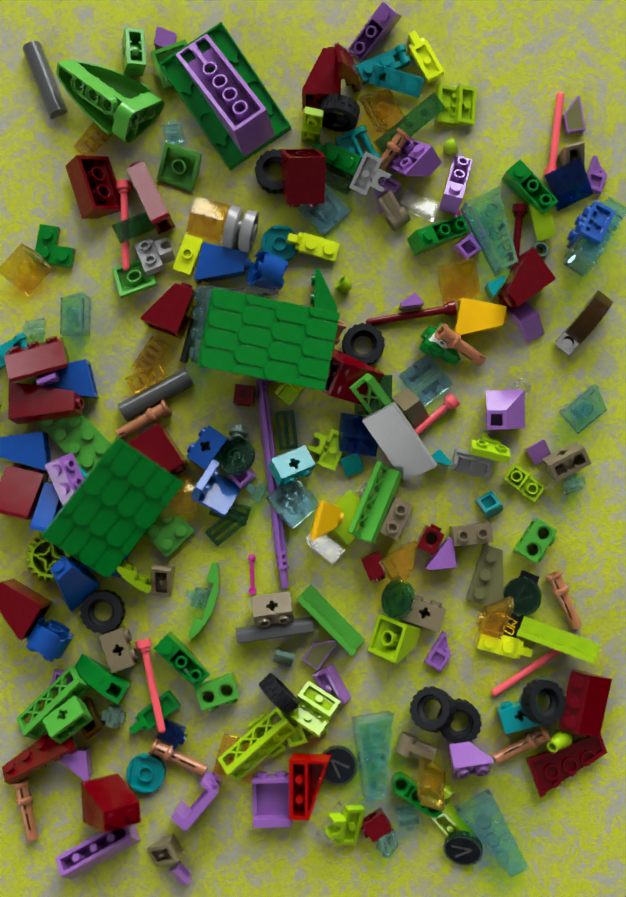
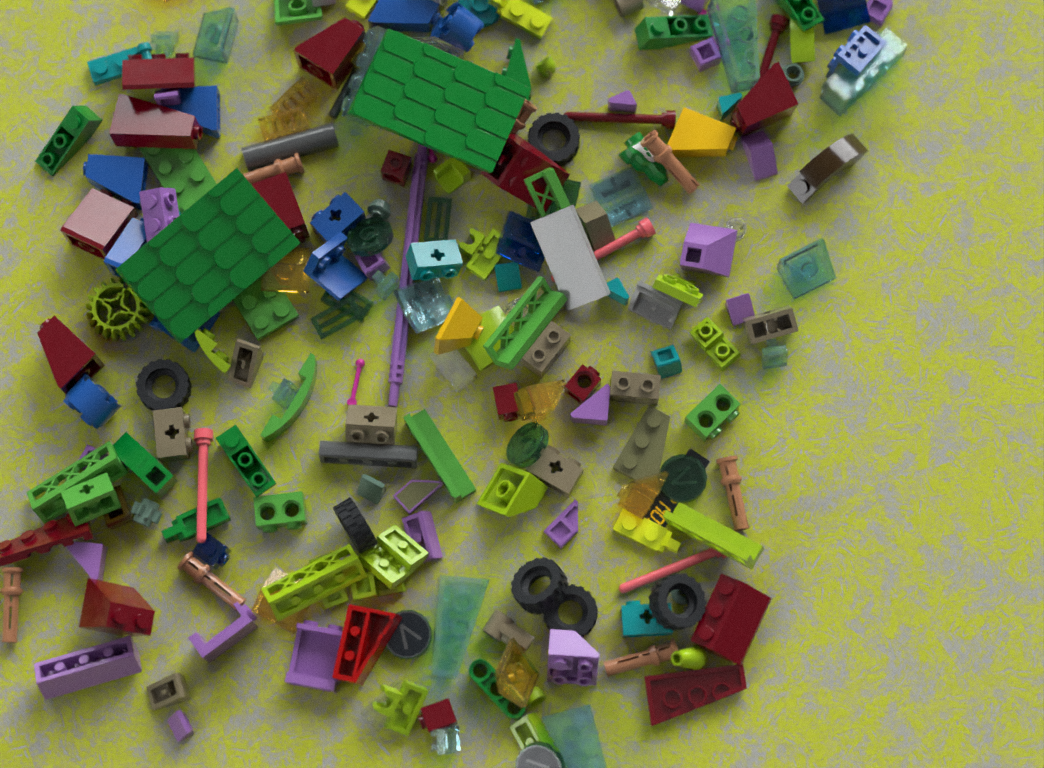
camera: 10 degrees right, 10 degrees down
(73, 581) = (136, 339): blue slope -> none
(145, 773) = (168, 593): teal tile -> none
(407, 816) = (480, 714): clear light blue tile -> none
(458, 279) = (686, 87): clear yellow slope -> none

